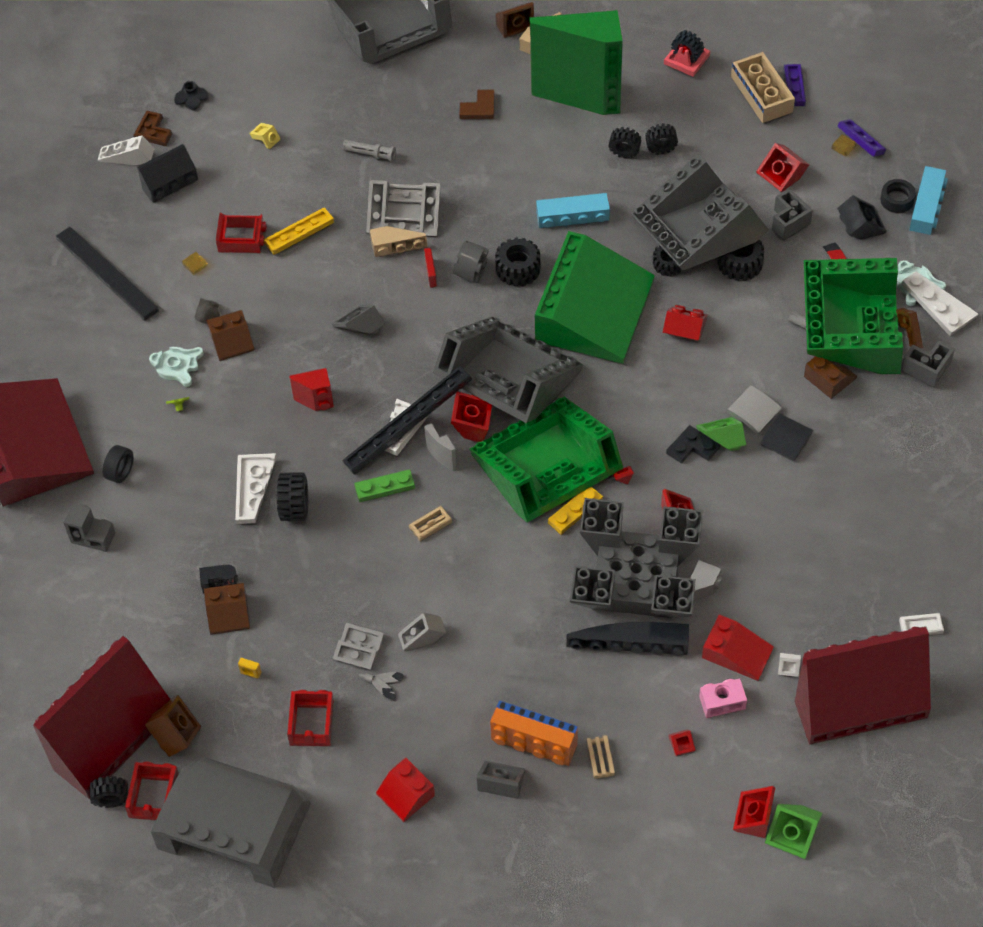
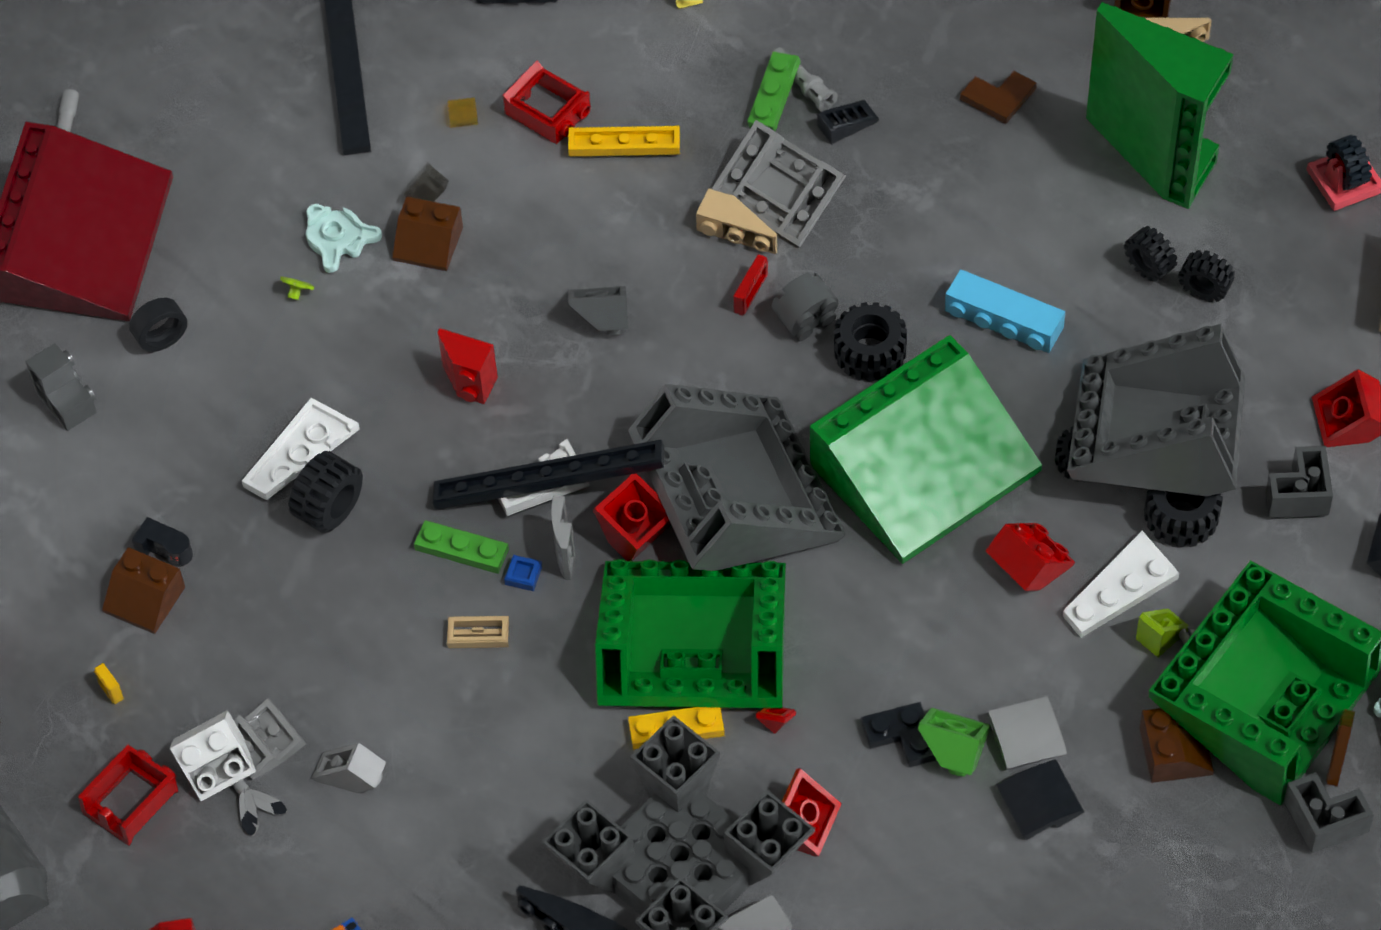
camera: 35 degrees right, 0 degrees up
(343, 668) = (213, 755): none -> white slope
(360, 163) = (774, 90): none -> bright green plate
(405, 168) = (833, 132): none -> black slope
(429, 480) = (523, 573): none -> blue tile
(740, 311) = (1125, 582): none -> white wing
(777, 324) = (1159, 630): none -> lime slope
(834, 251) = (1329, 580): sticker -> none

